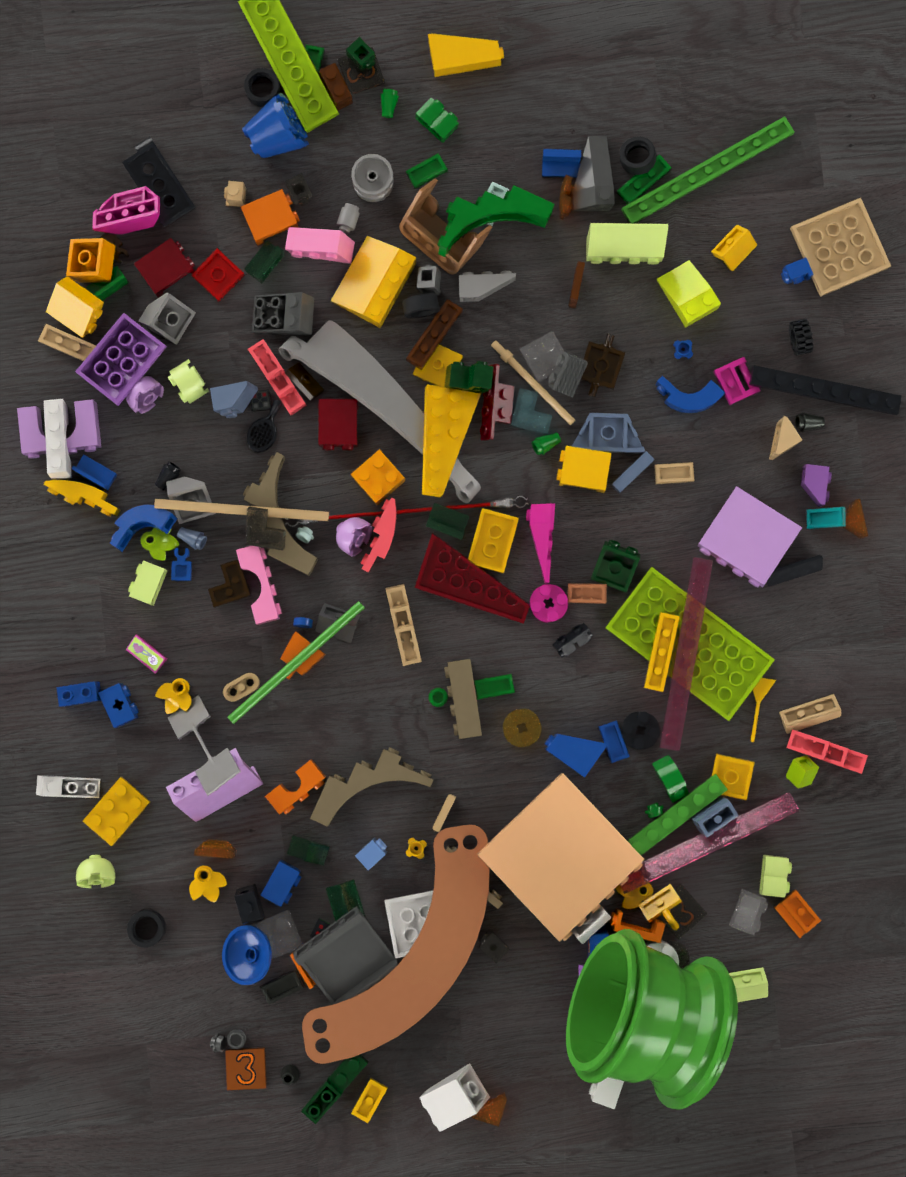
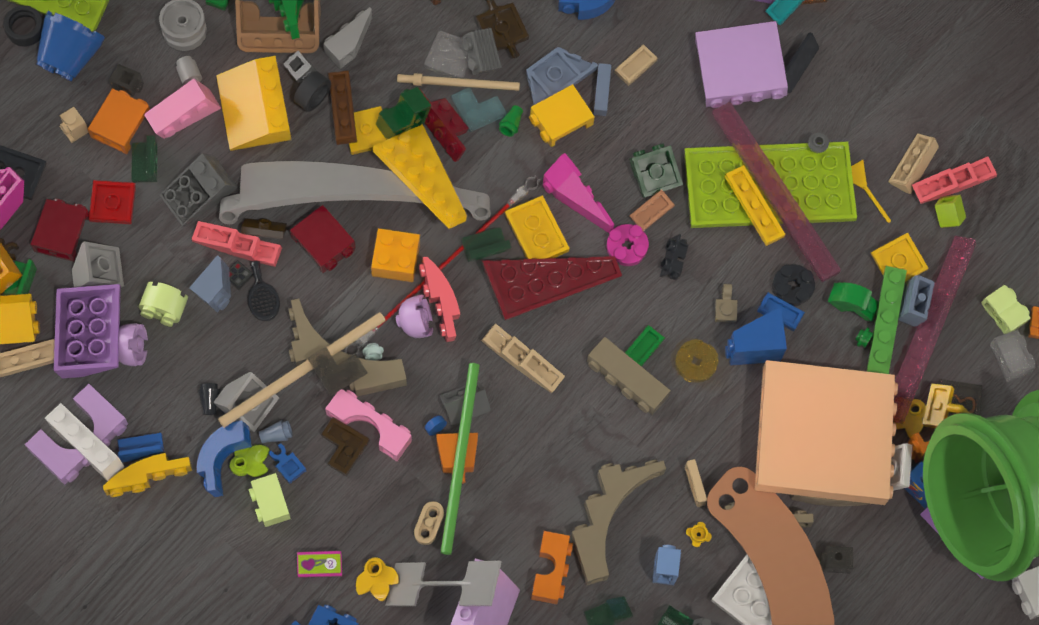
camera: 50 degrees left, 15 degrees down
(438, 697) = (604, 394): green plate -> none
(576, 707) = (726, 308): none -> dark tan plate
(744, 643) = (818, 148): none -> dark grey plate

